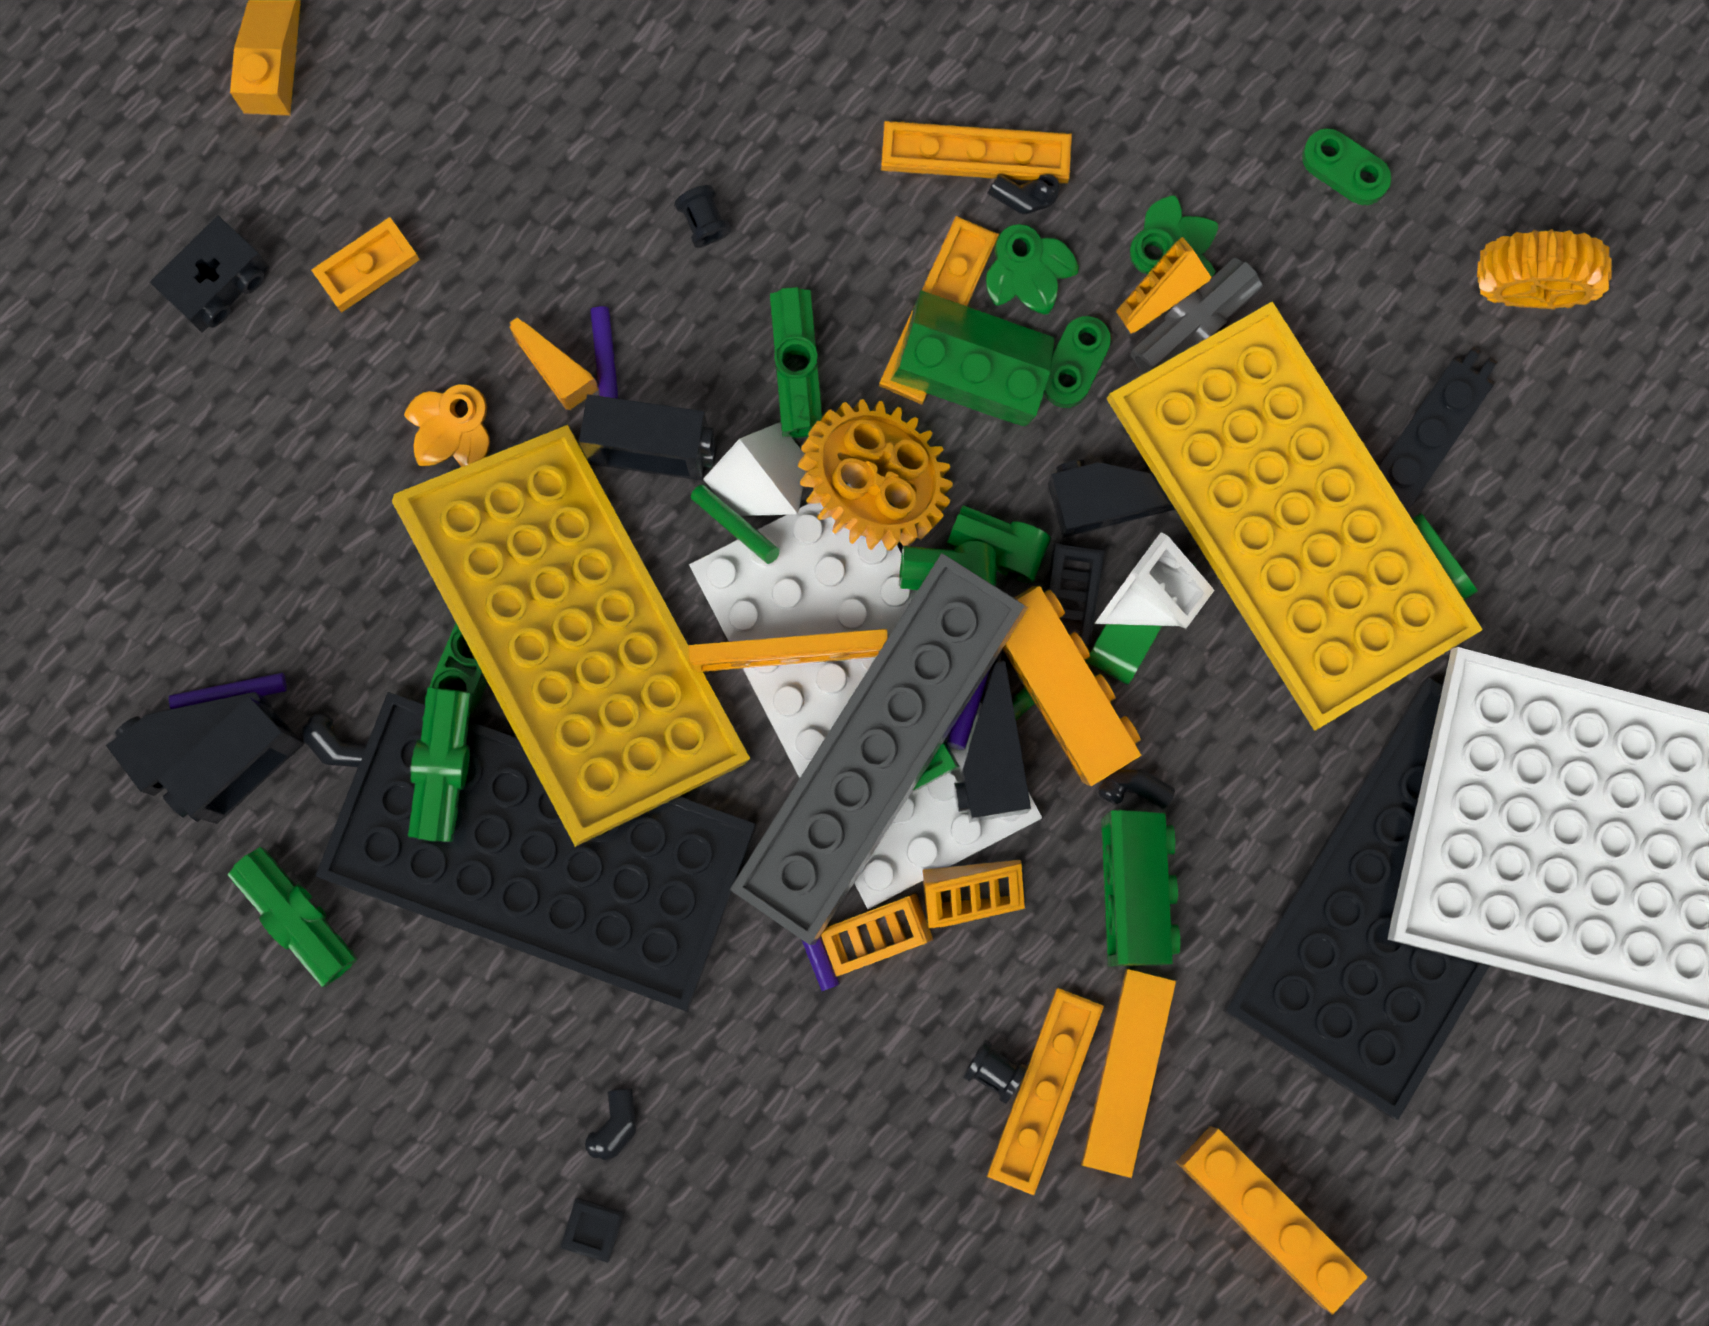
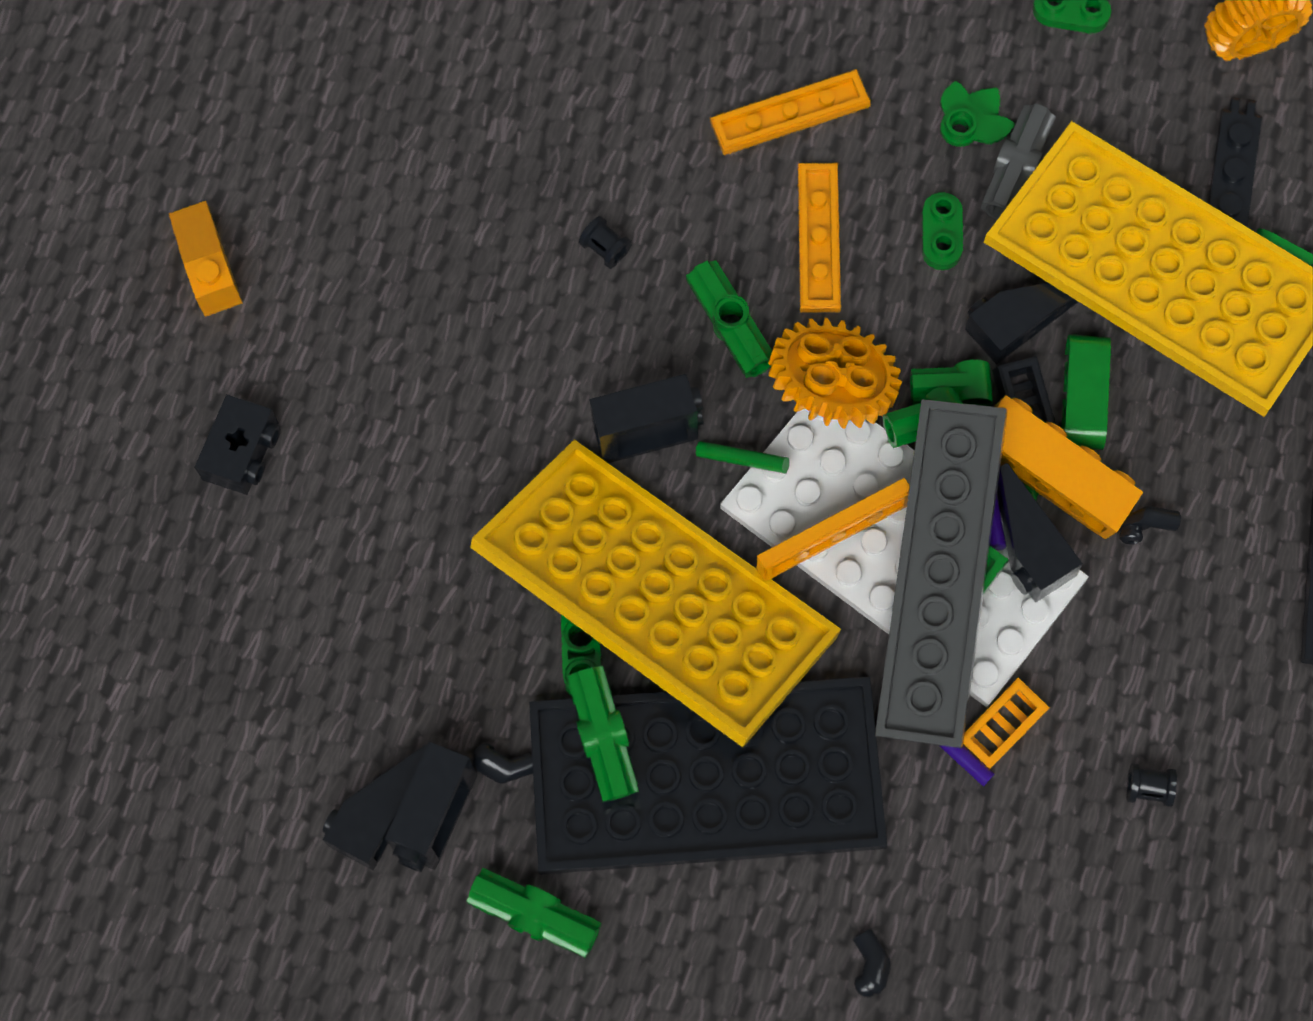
camera: 20 degrees left, 10 degrees down
(262, 685) = (430, 736): dark purple piece -> none
(365, 264) = (357, 387): light orange plate -> none
(443, 431) = (480, 487): light orange plate -> none
(561, 373) = (547, 401): light orange slope -> none
(604, 352) = (573, 373): dark purple piece -> none
(760, 474) = (743, 413): white slope -> none
(959, 911) = (1032, 658): light orange slope -> none
(974, 359) = (867, 260): green slope -> none
(1026, 197) = (845, 128): black arm -> none
(1031, 276) = (875, 184): green plate -> none
(1045, 1091) = (1197, 786): light orange tile -> none
(1128, 1073) = (1253, 742): light orange tile -> none
(1139, 888) = (1189, 596): green slope -> none
(1159, 590) = (1095, 361): white slope -> none
(1164, 286) = (984, 143): light orange slope -> none

